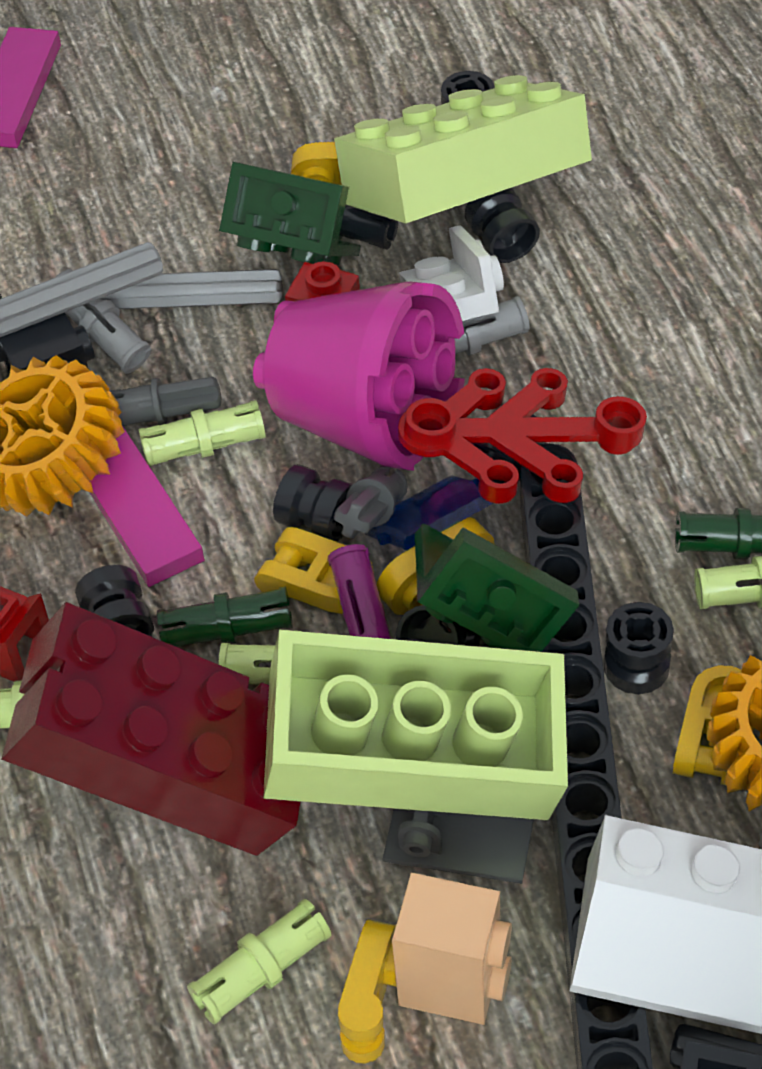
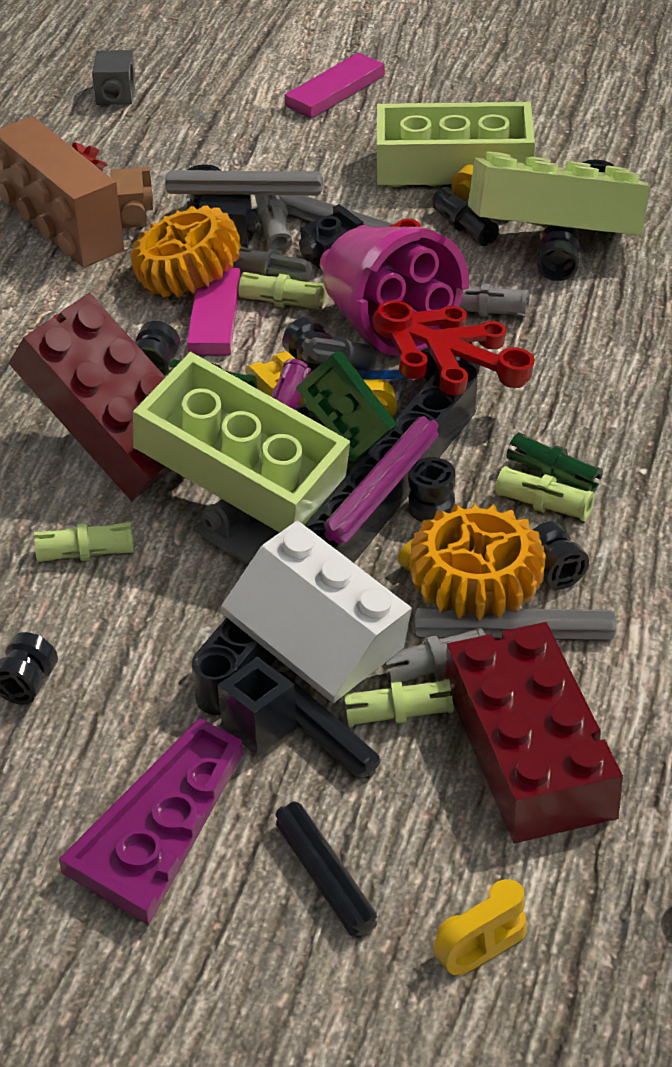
camera: 30 degrees right, 10 degrees down
(209, 326) = (323, 233): none -> black brick
(252, 114) = (437, 139): none -> yellowish green brick
(286, 211) = (416, 187): dark green bracket -> none
(364, 990) = (126, 576): yellow plate -> none
(450, 949) = (176, 567): light nougat brick -> none
(469, 277) = (496, 268): white bracket -> none
(603, 680) = (381, 480): none -> magenta axle

